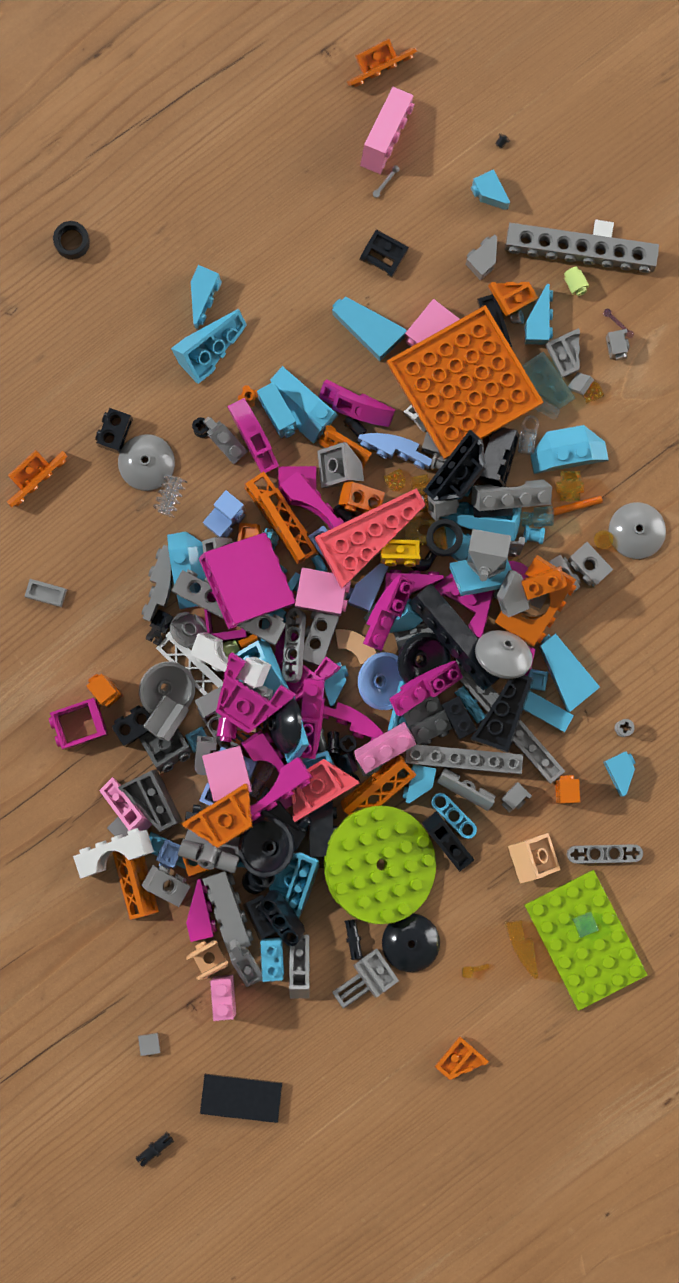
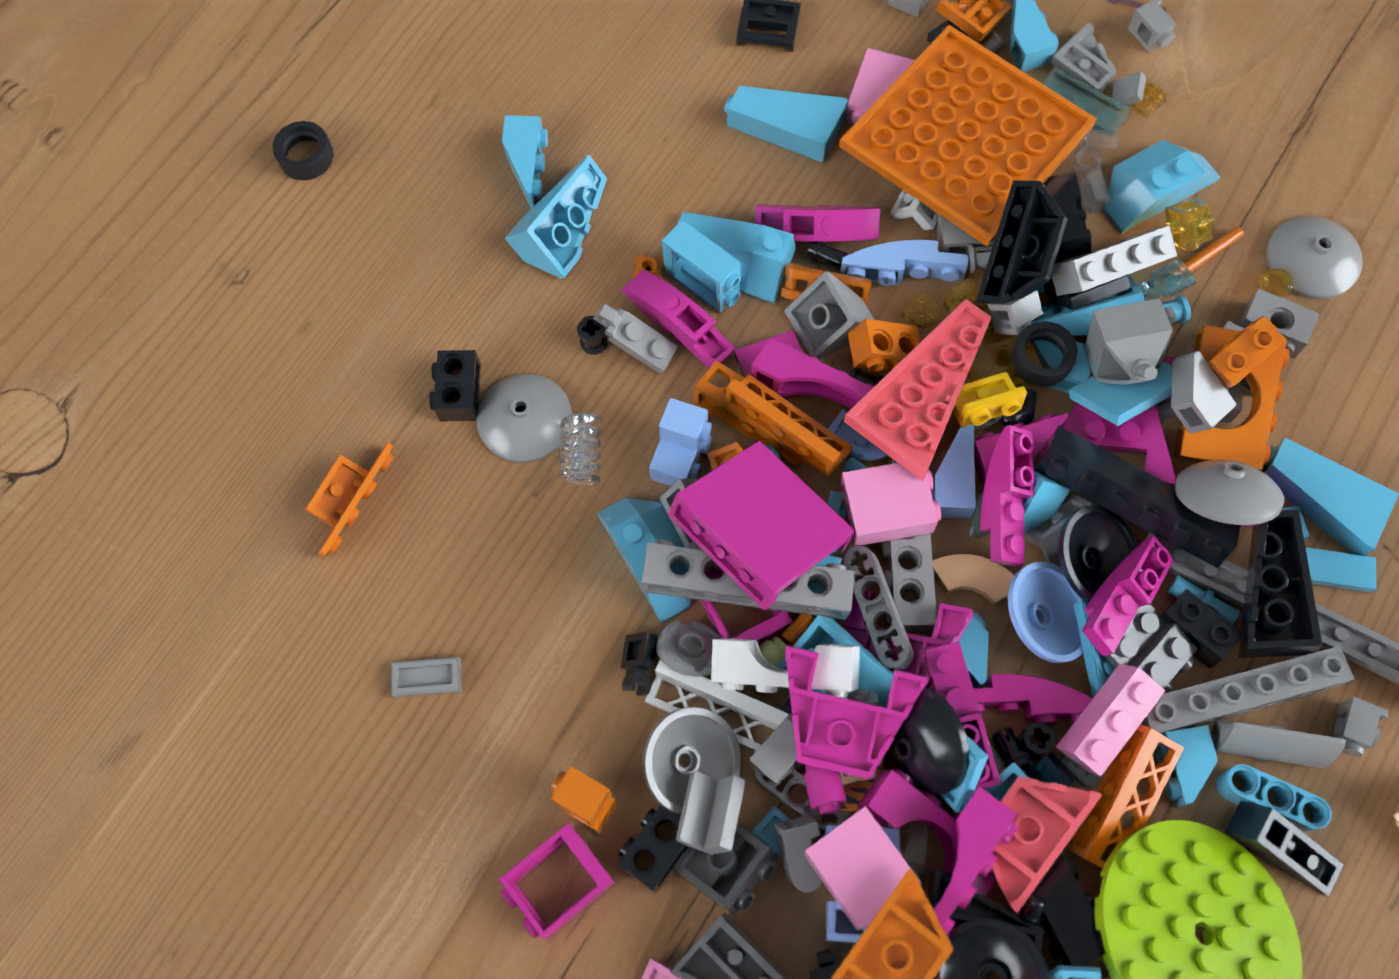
camera: 20 degrees left, 15 degrees down
(162, 576) = (612, 582): light grey slope -> none

